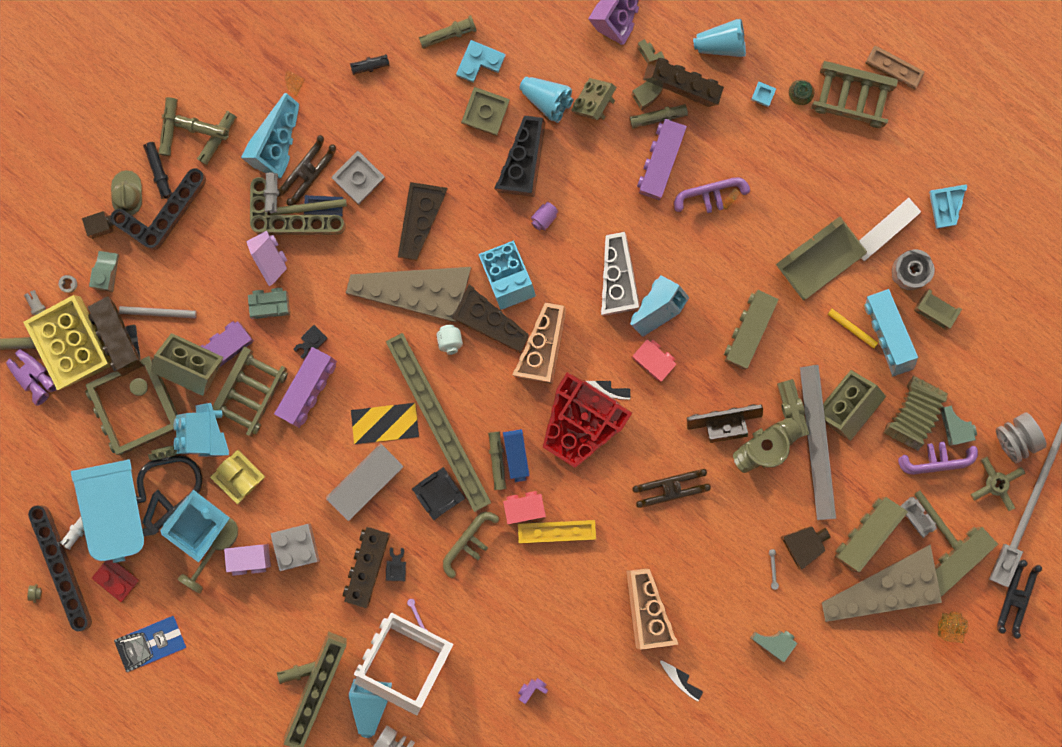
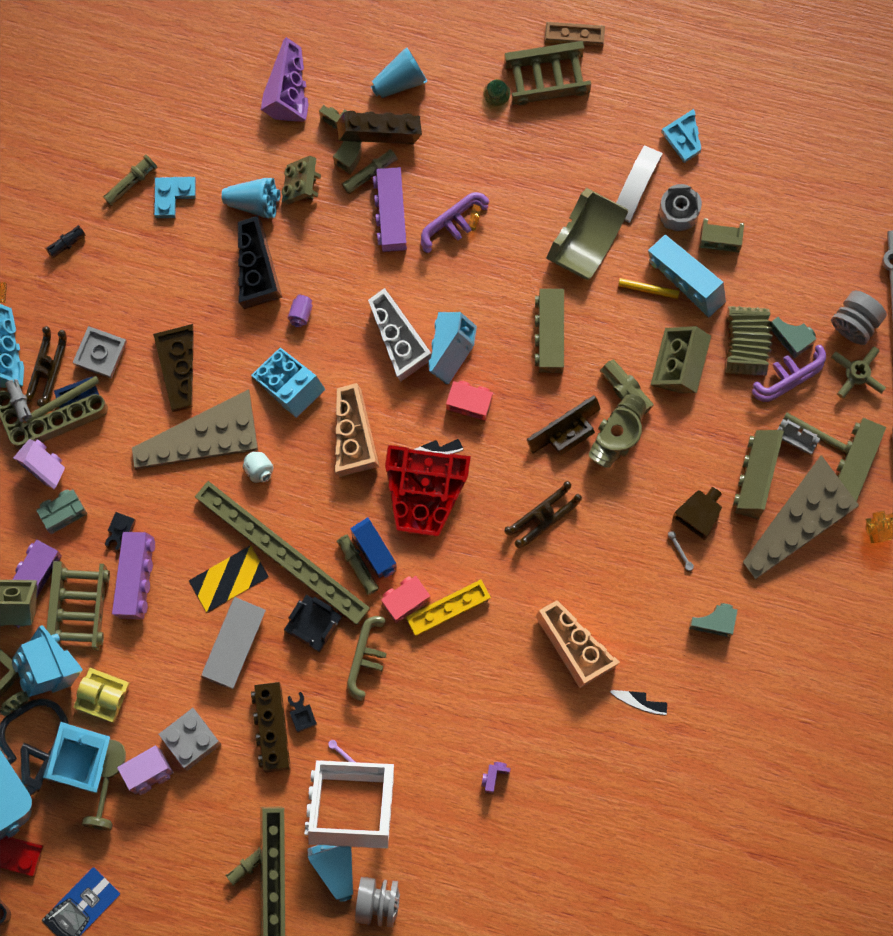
camera: 20 degrees left, 10 degrees down
(485, 111) = (198, 237): olive plate -> none
(485, 318) = (281, 431): dark brown wing -> none
(763, 94) = (461, 109): medium azure plate -> none
(818, 442) = (666, 409): light grey tile -> none

